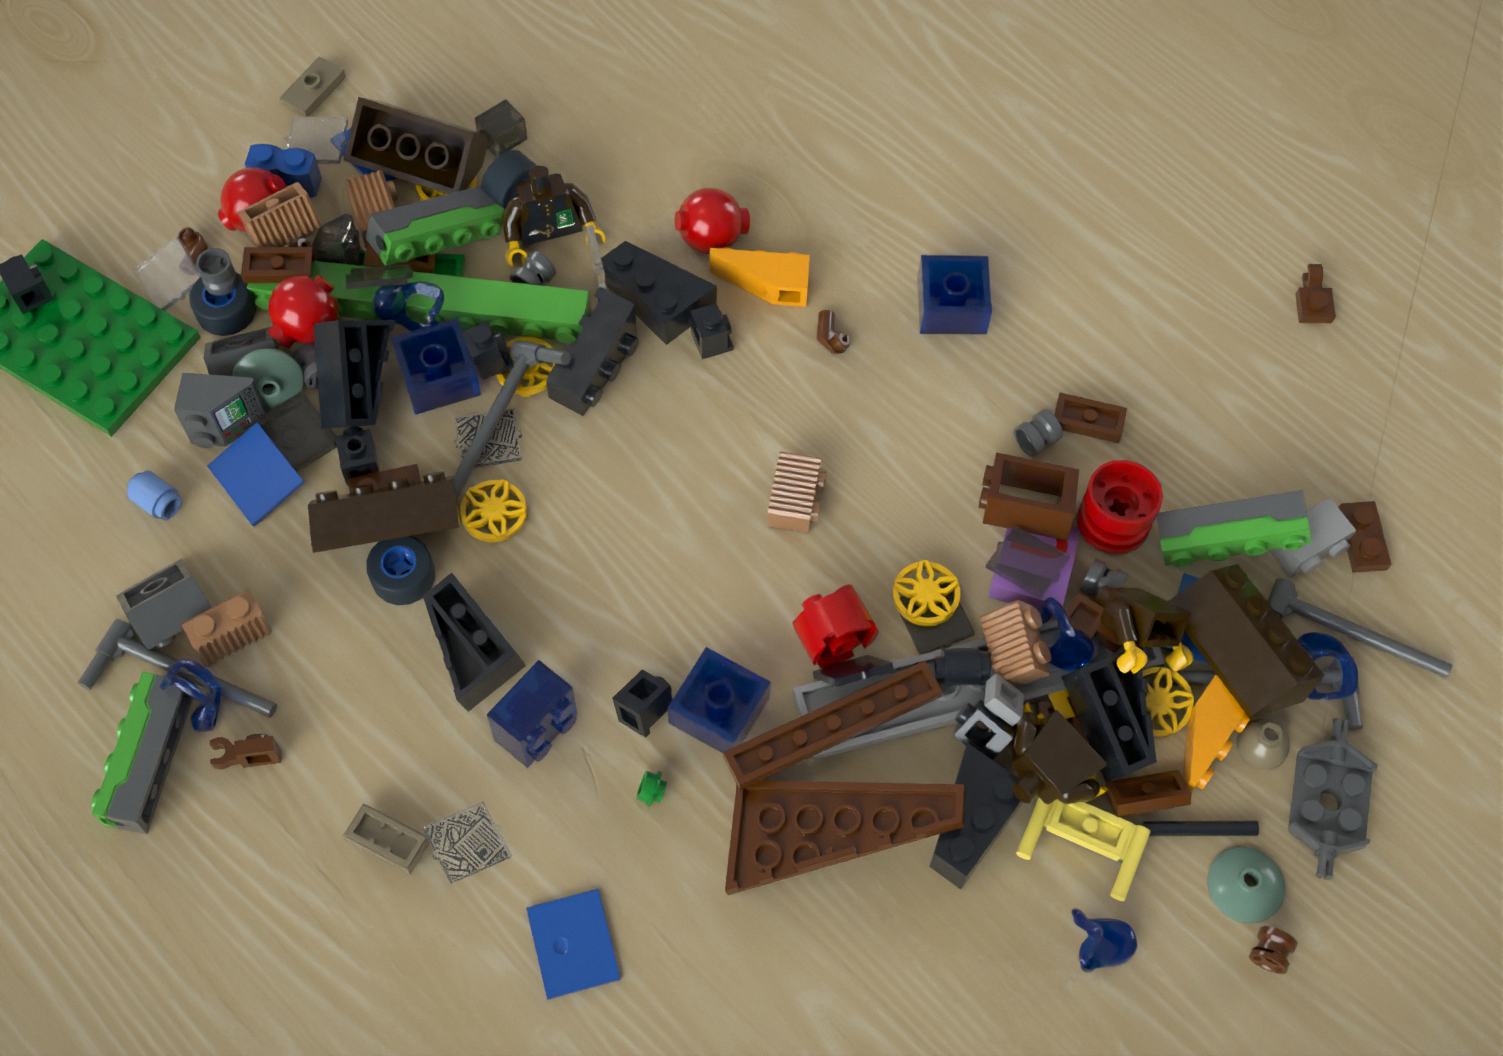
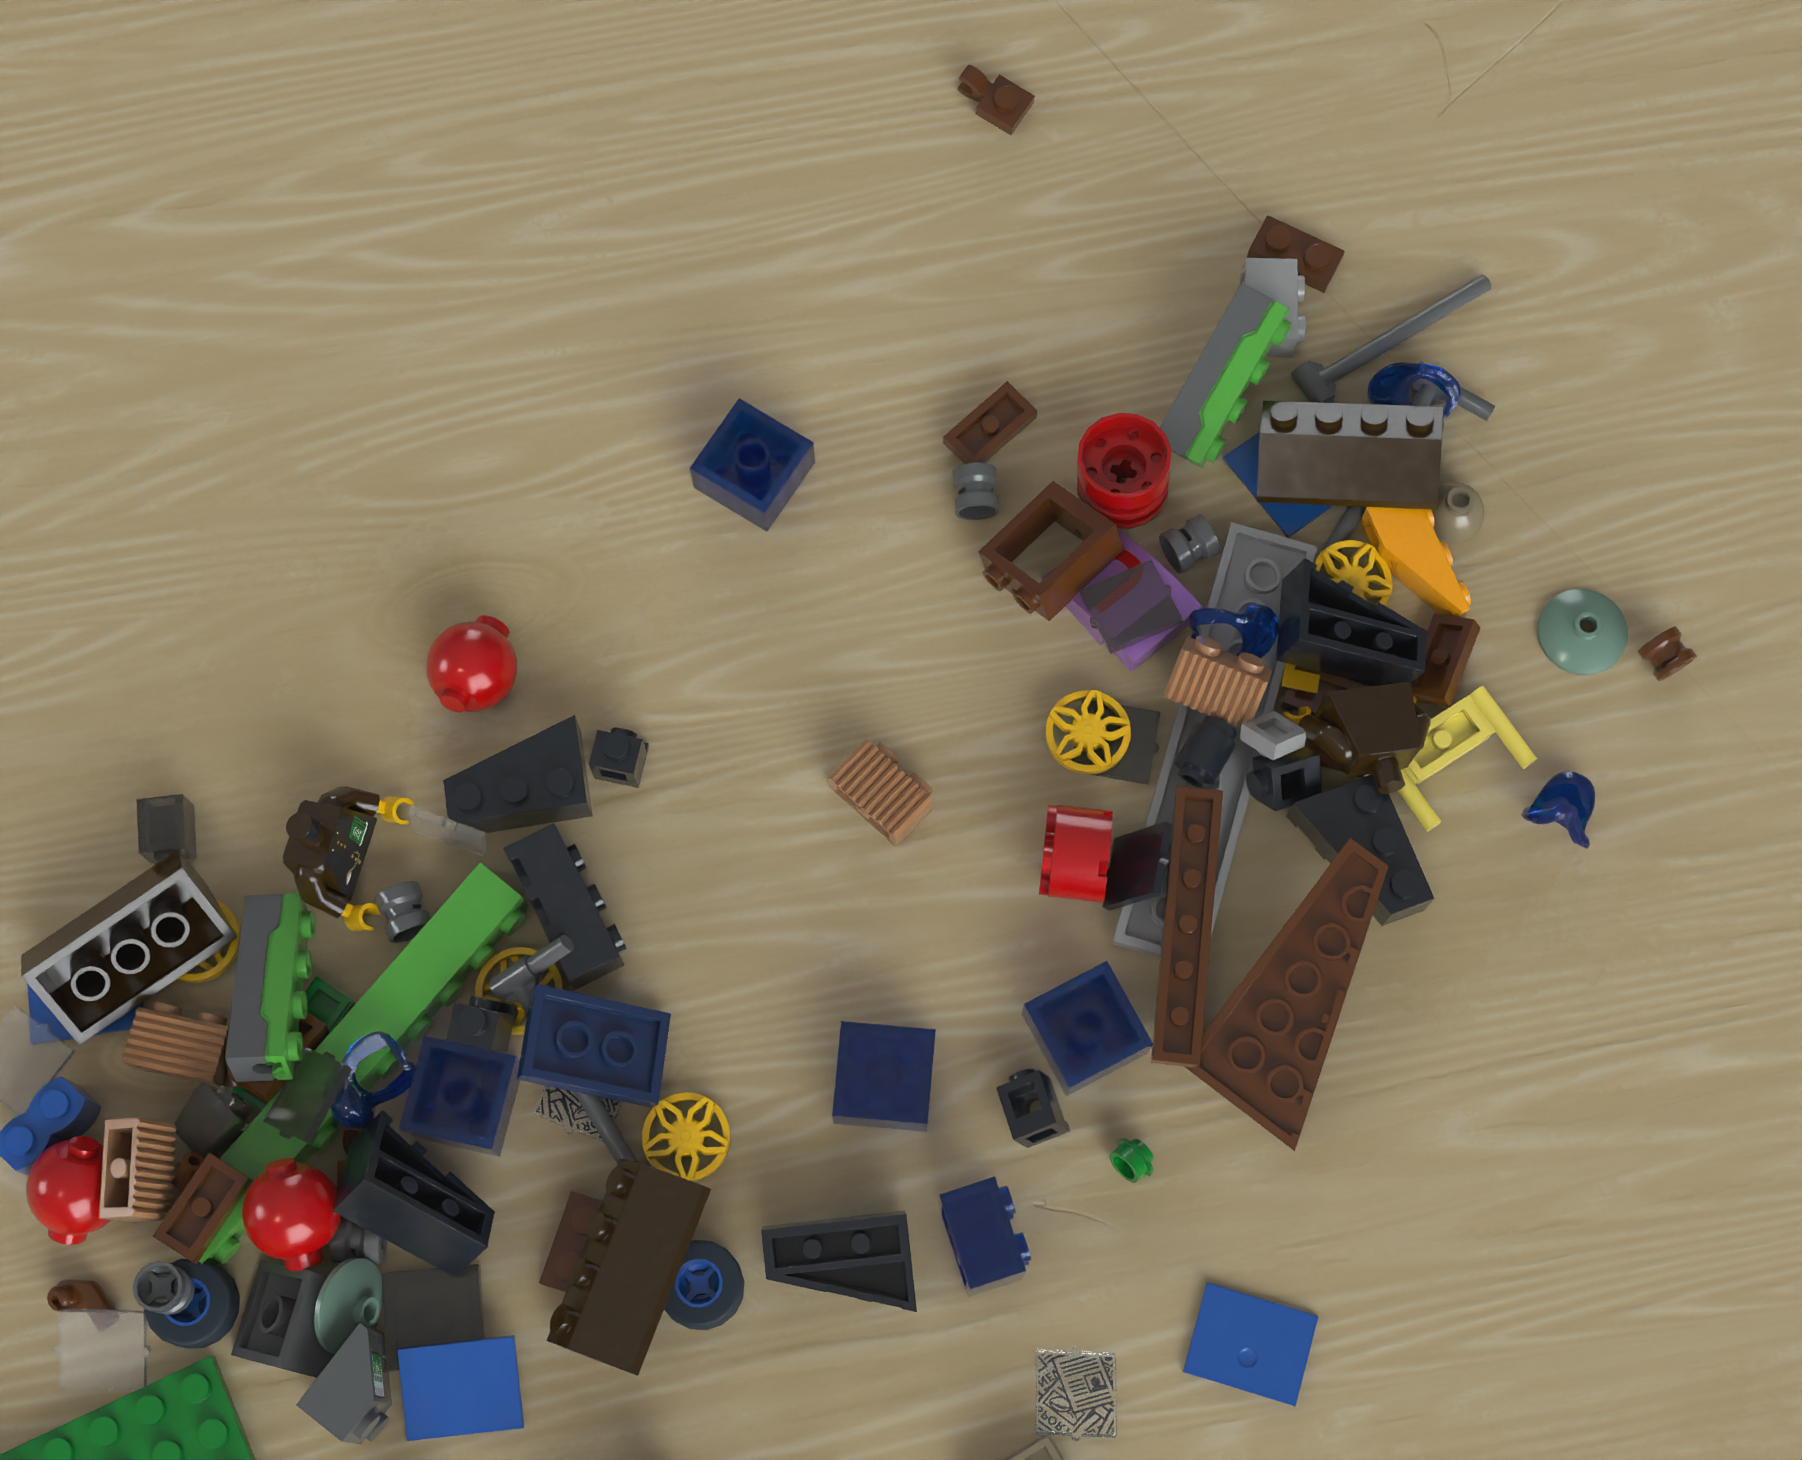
camera: 55 degrees left, 10 degrees up
(357, 453) = (531, 1259): black brick -> none
(504, 175) = (258, 860): black wheel -> none
(513, 417) = (594, 1046): none -> dark blue plate
(606, 599) = (883, 1076): none -> clear blue brick
(768, 275) = (590, 645): light orange slope -> none
(827, 336) = (707, 632): reddish brown arm -> none
(1086, 616) = (1234, 590): reddish brown plate -> none
(1147, 622) = (1281, 540): dark brown torso -> none
(1202, 828) = (1503, 633): black bar -> none
(1345, 774) = (1537, 459): dark grey plate -> none

